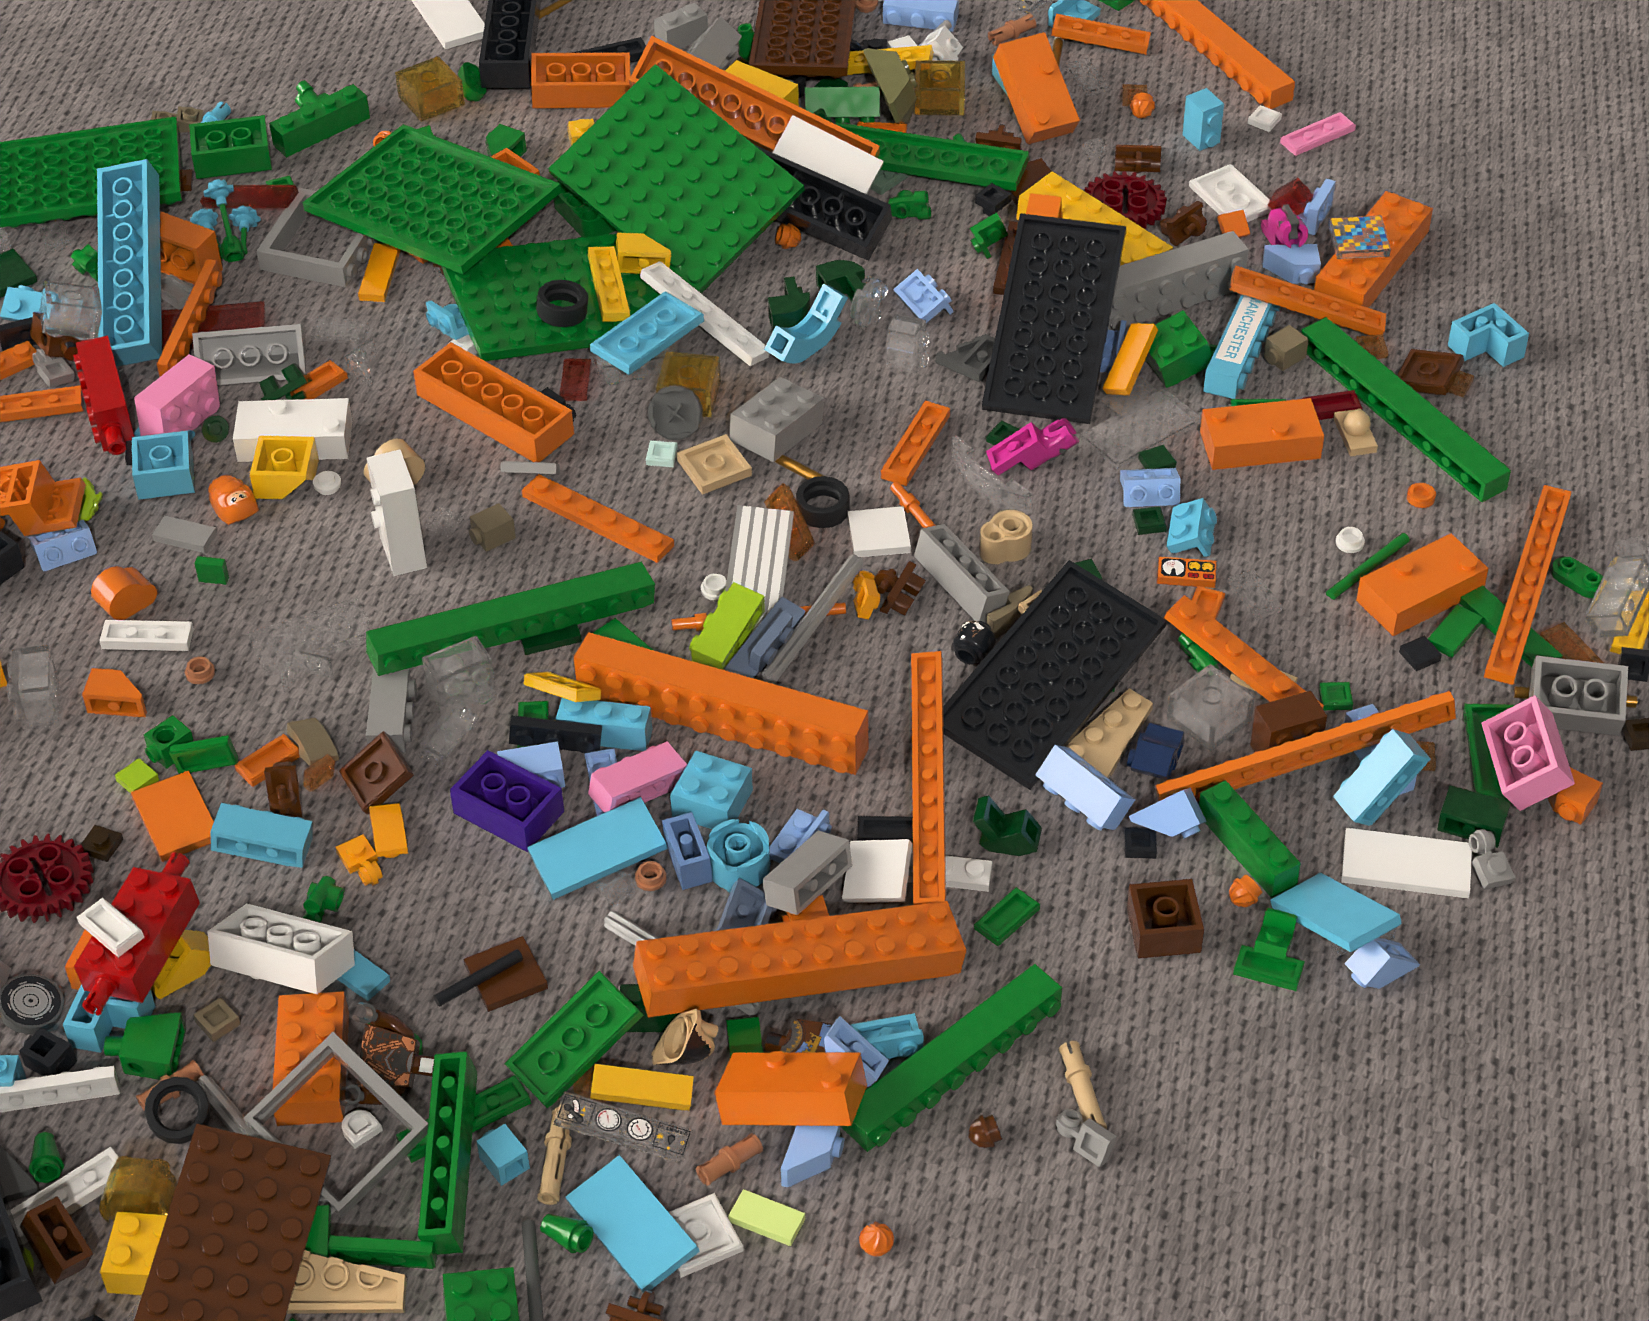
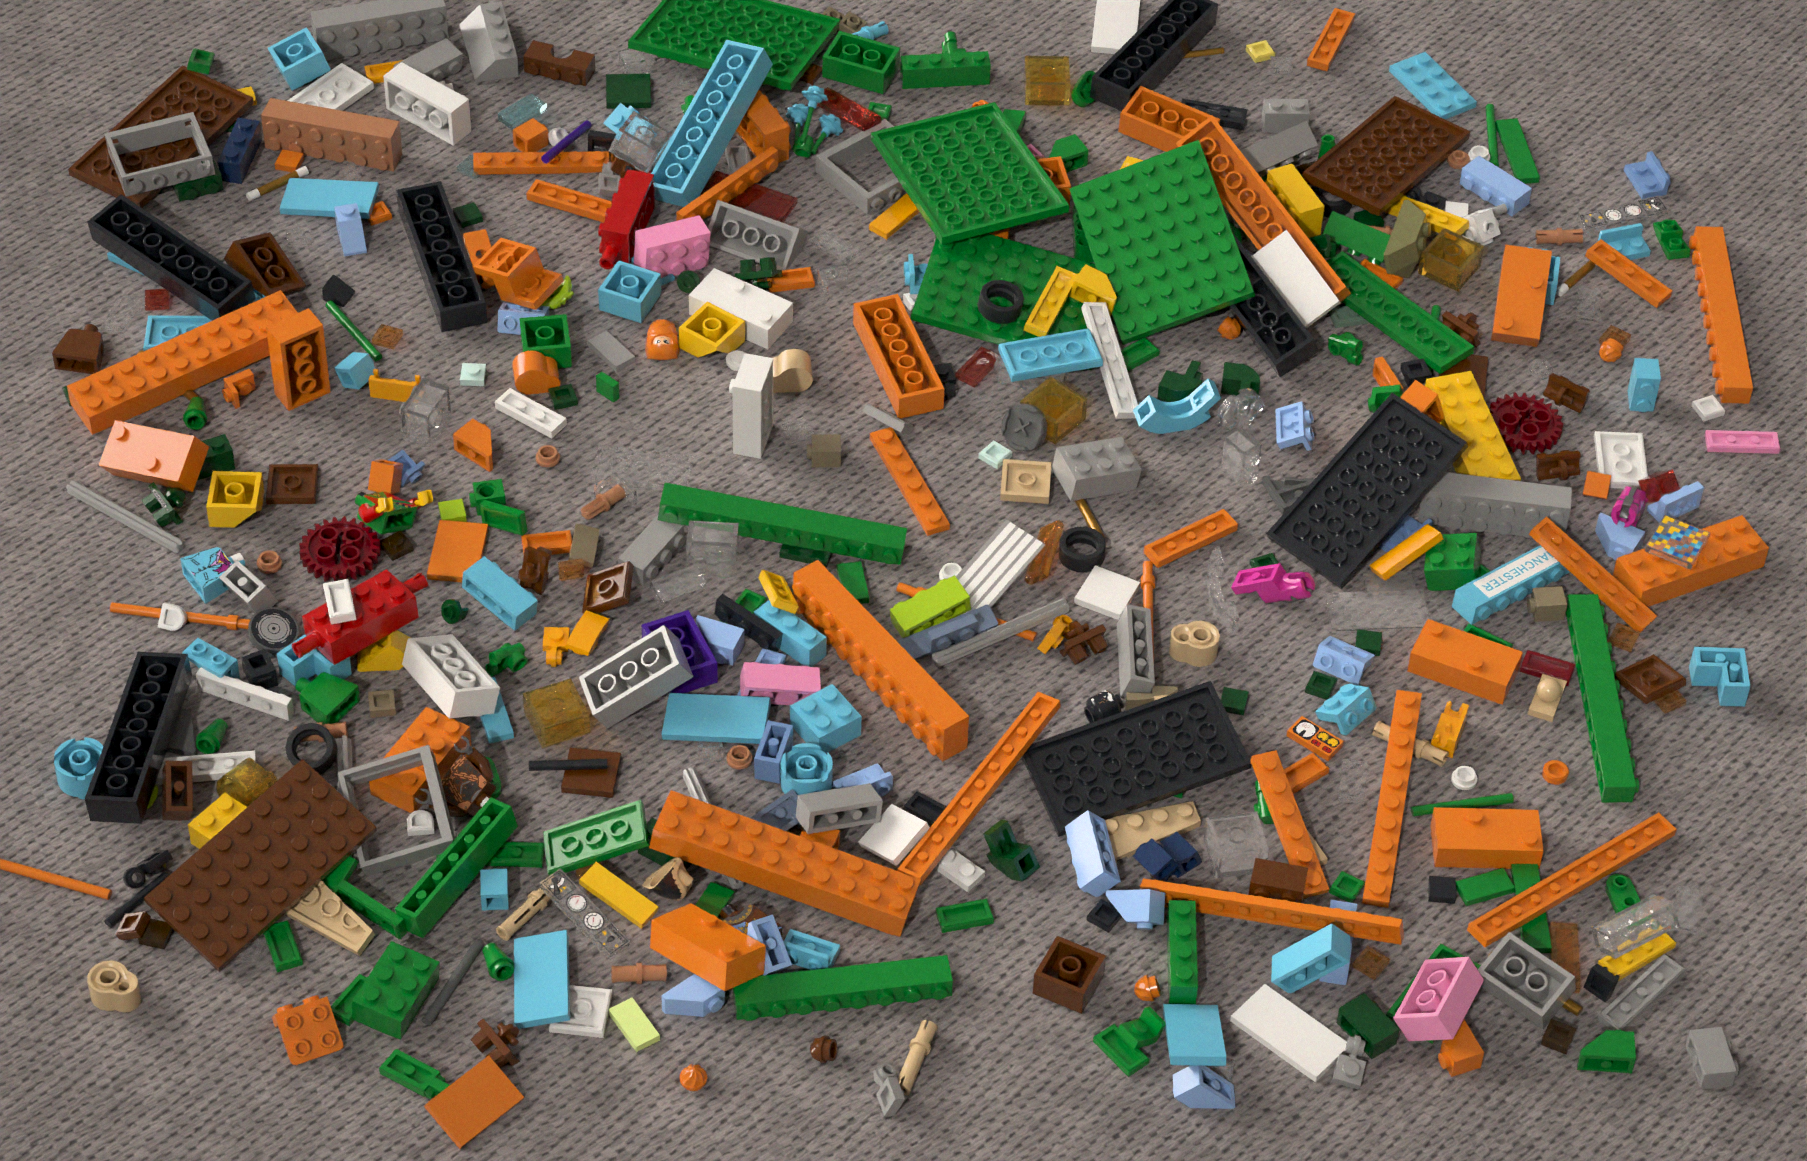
camera: 30 degrees right, 0 degrees up
(38, 776) = (385, 476): none -> orange brick
(50, 626) = (473, 374): none -> light aqua plate
(50, 758) = (411, 470): none -> medium blue bracket
(69, 811) = (388, 512): none -> torso
(109, 546) = (548, 336): none -> green brick
(167, 603) = (562, 396): none -> dark green tile
(220, 880) = (452, 611): none -> dark green plate
(297, 688) = (603, 502): none -> nougat axle
(422, 929) = (556, 713): none -> clear yellow brick
(489, 846) = (635, 676): none -> light grey brick
(722, 294) = (1139, 353): none -> green tile
(966, 214) = (1383, 374): none -> orange tile
(1277, 533) = (1422, 748): none -> tan pin
(1301, 503) = (1450, 728): none -> light orange hinge
(1309, 592) = (1392, 799): none -> orange plate

